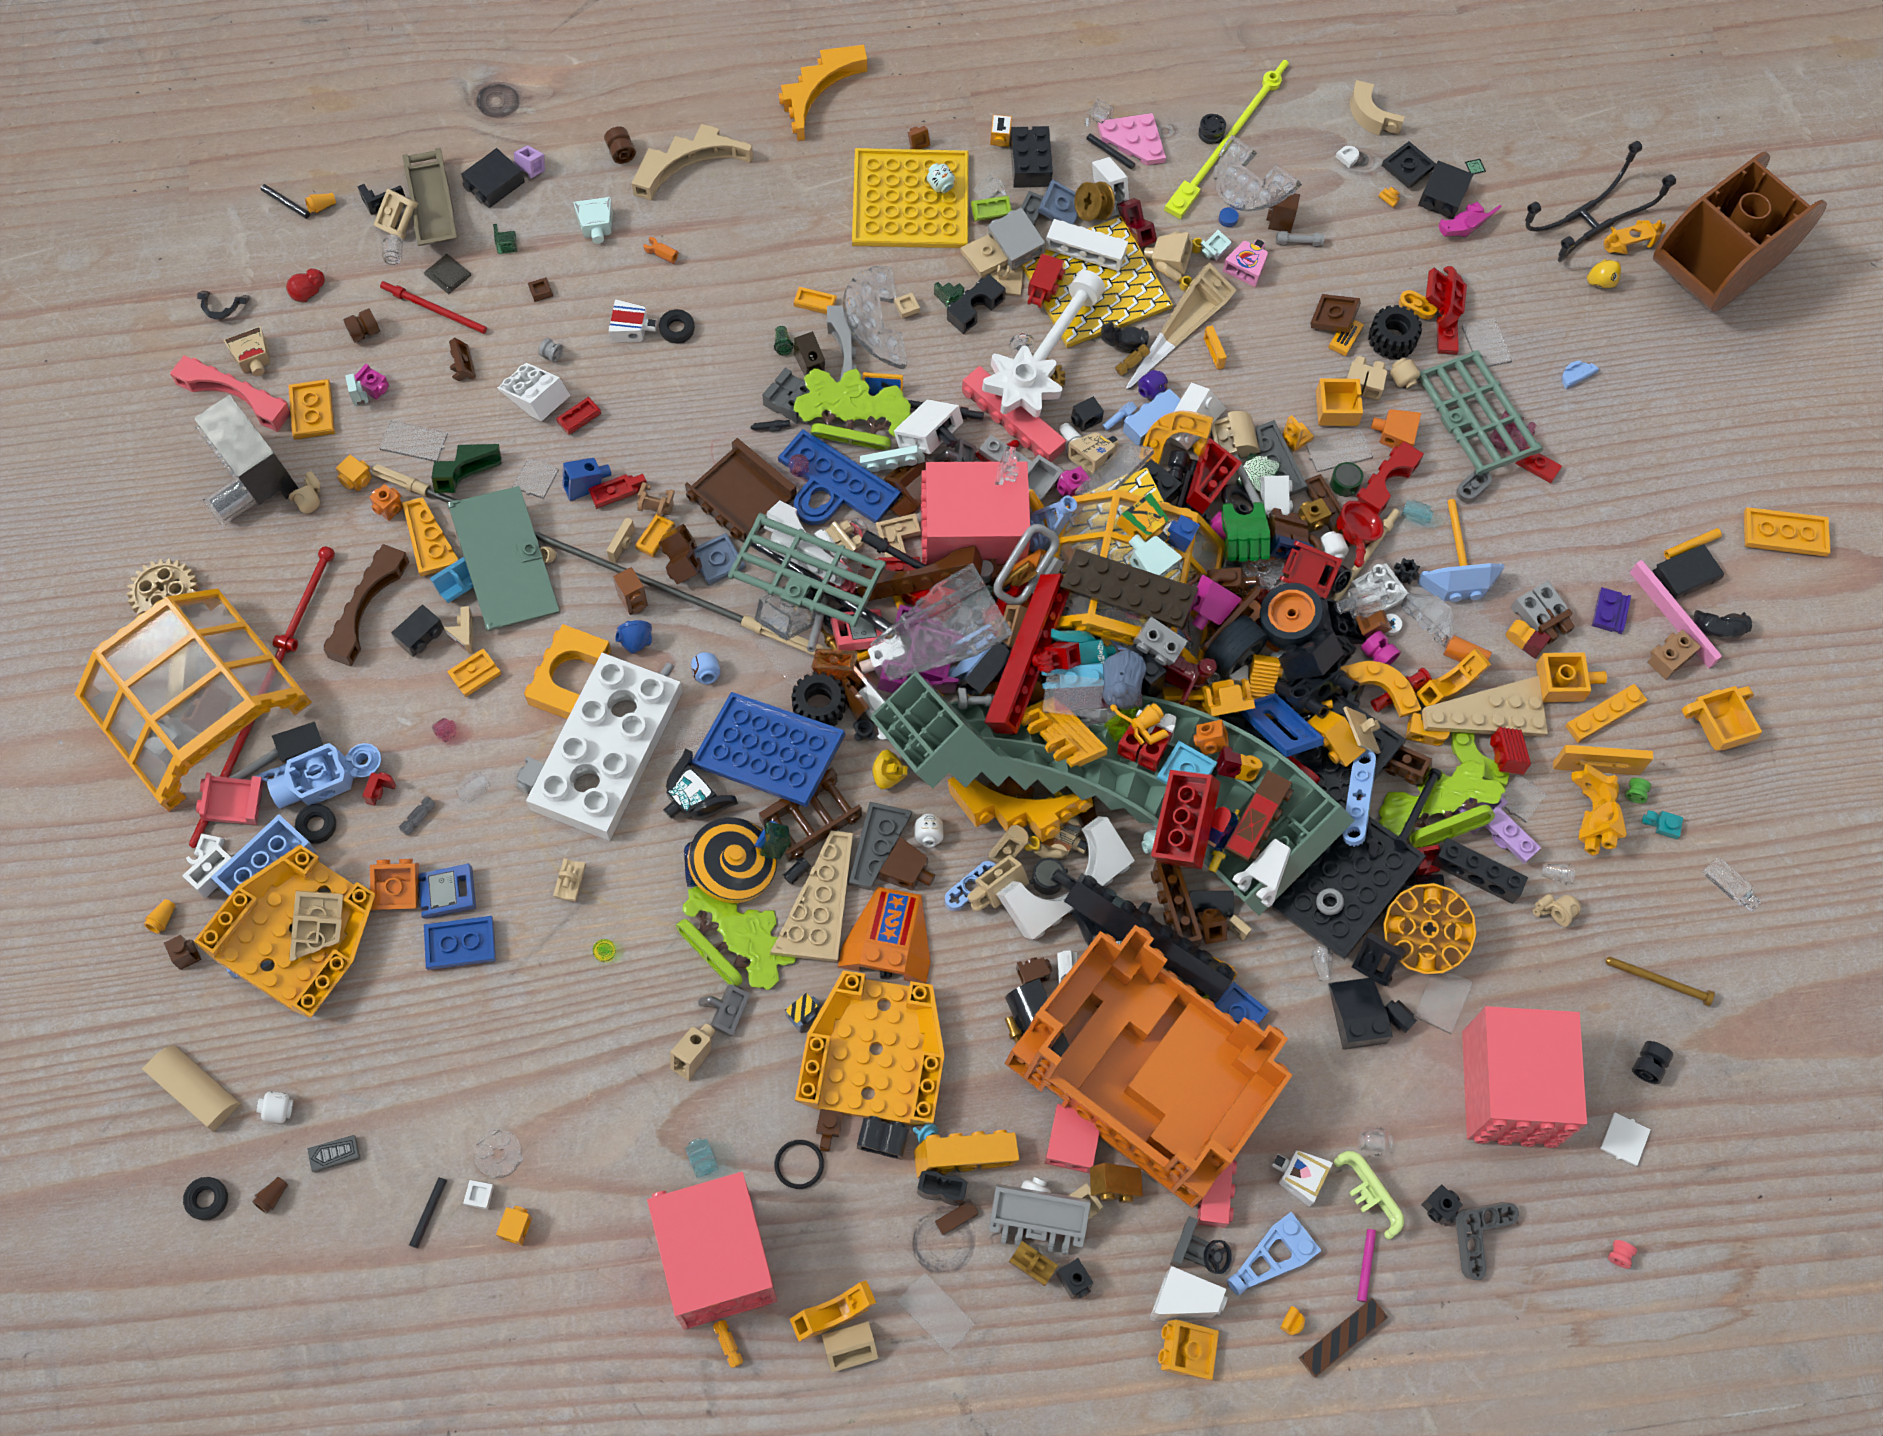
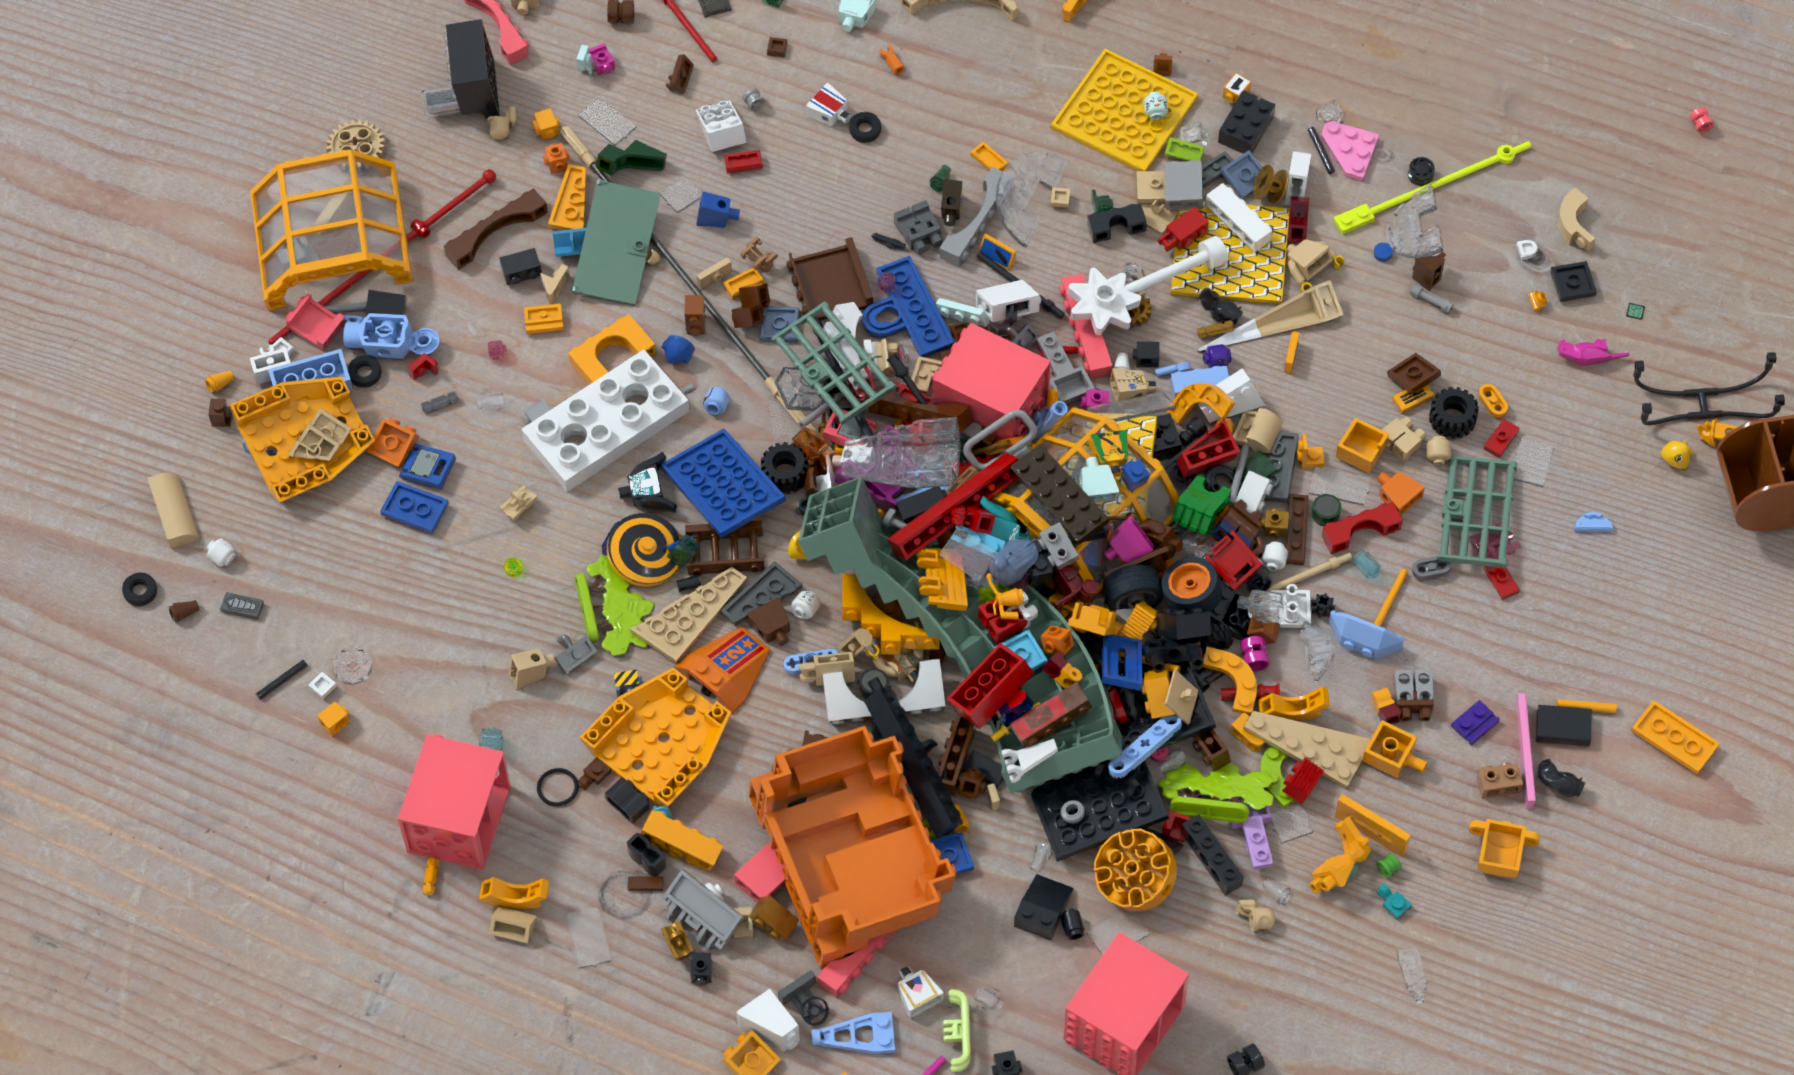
camera: 35 degrees right, 5 degrees down
(311, 409) = (545, 59): light orange tile -> none
(616, 489) = (735, 232): red hinge -> none
(850, 402) = (957, 251): lime plant -> none
(1007, 467) = (1024, 355): clear plate -> none
(1215, 245) = (1352, 270): light aqua bracket -> none
(1247, 262) = (1370, 296): bright pink torso -> none
(1359, 527) = (1306, 549): red piece -> none
(1371, 956) = (1076, 870): black plate -> none
(1380, 794) = (1172, 761): none -> clear cone
(1395, 623) = (1283, 641): white tile -> none
(1401, 841) = (1156, 794): black bar -> none
(1445, 189) = (1589, 317): black brick -> none
(1446, 294) = (1521, 403): red plate -> none
(1460, 648) = (1336, 699): orange brick -> none
(1606, 713) = (1409, 796): light orange plate -> none
(1706, 997) = (1328, 1042): pearl gold bar -> none

